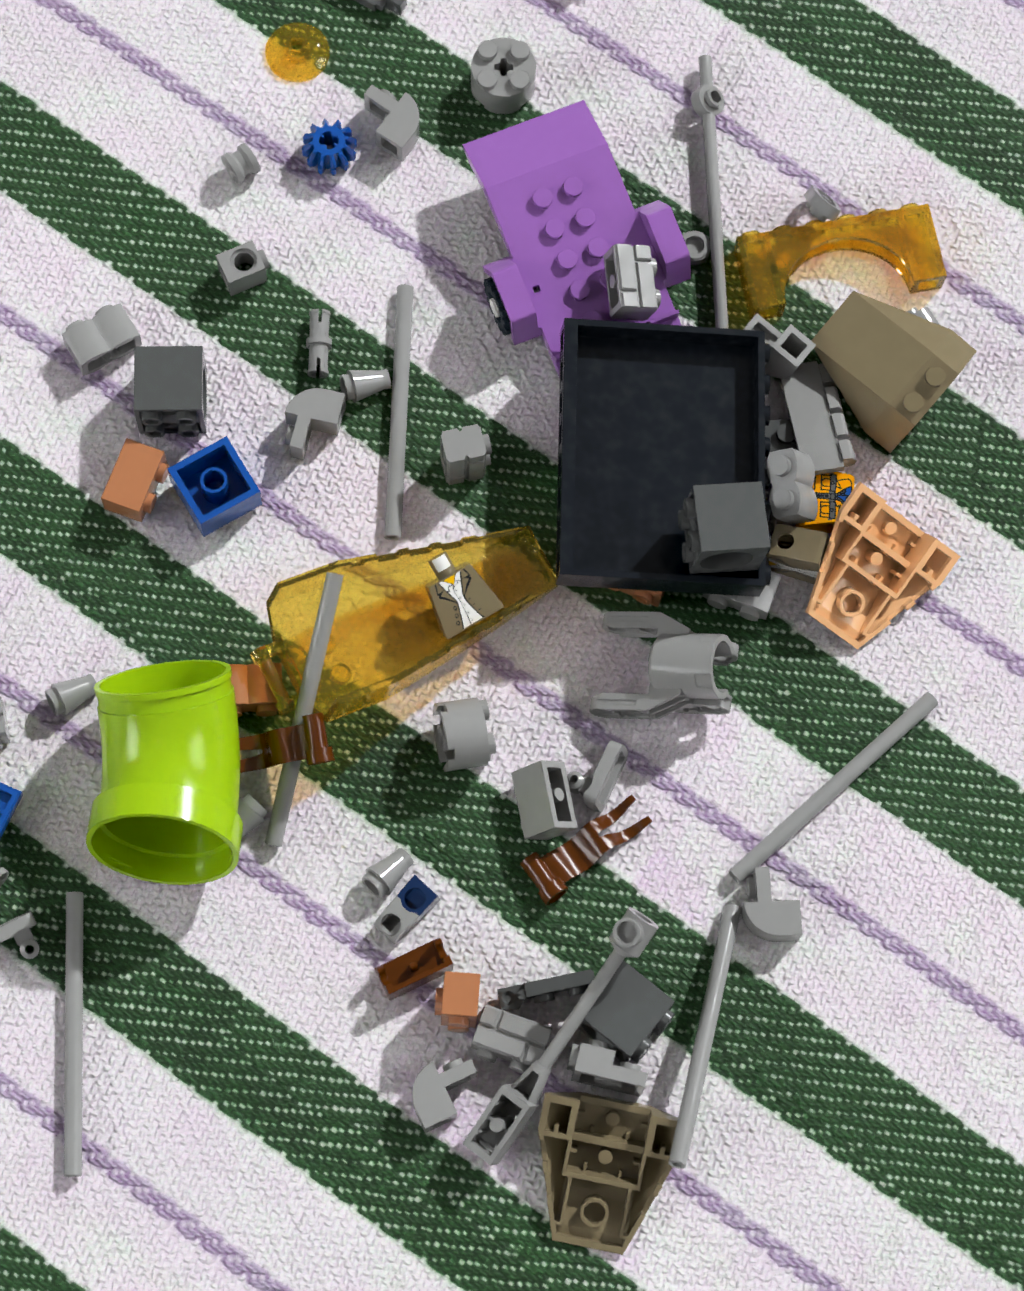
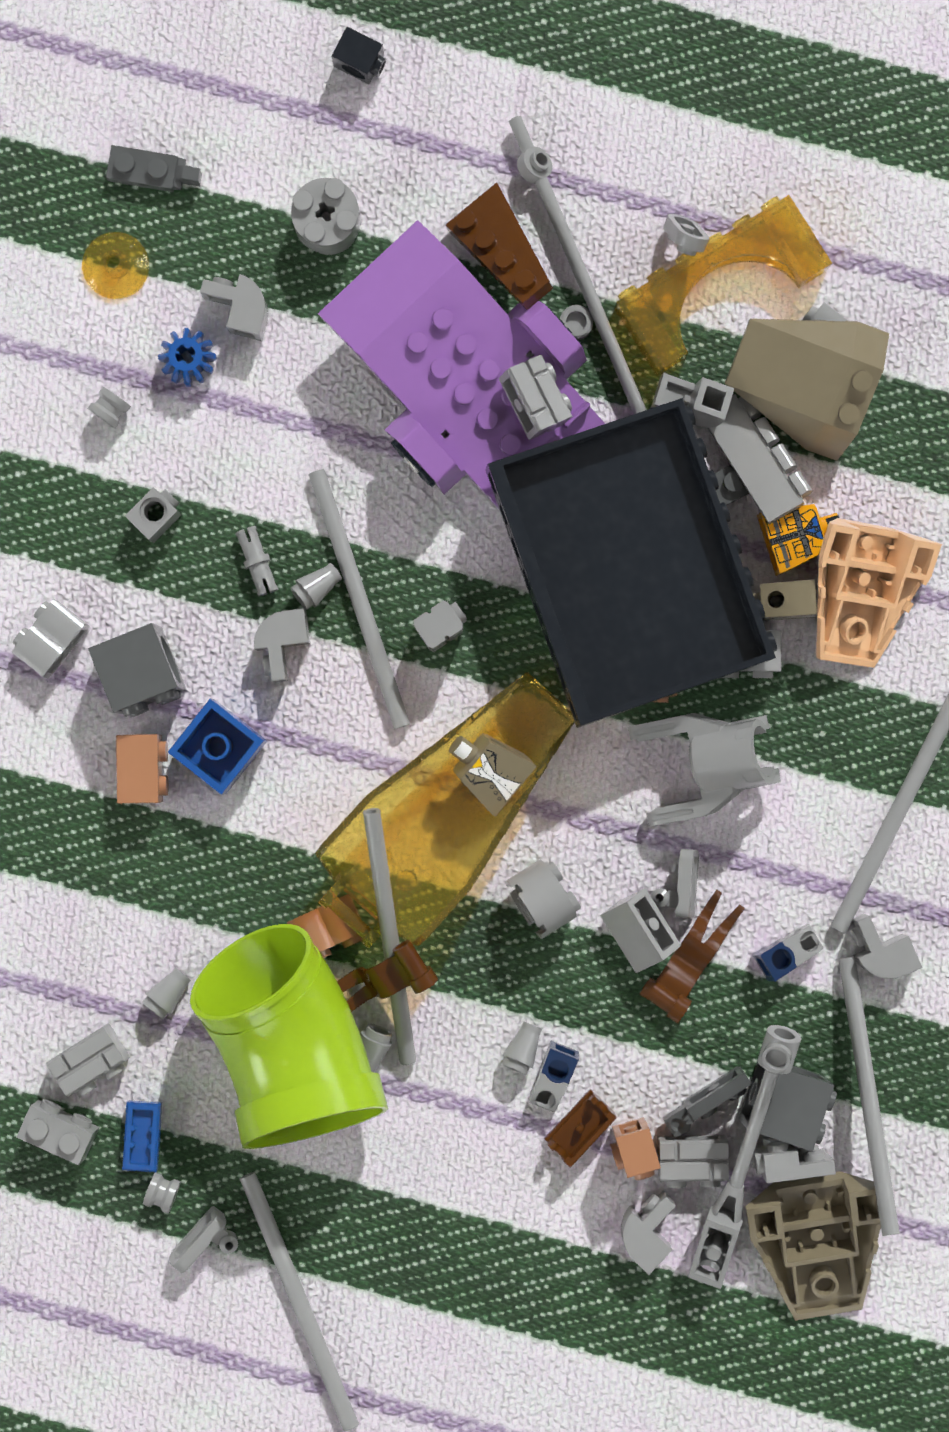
camera: 10 degrees left, 15 degrees up
(650, 153) = (499, 244): none -> reddish brown wing
(677, 877) = (788, 953): none -> leg
(724, 527) = (721, 623): dark grey brick -> none
(792, 481) = (765, 548): light grey brick -> none

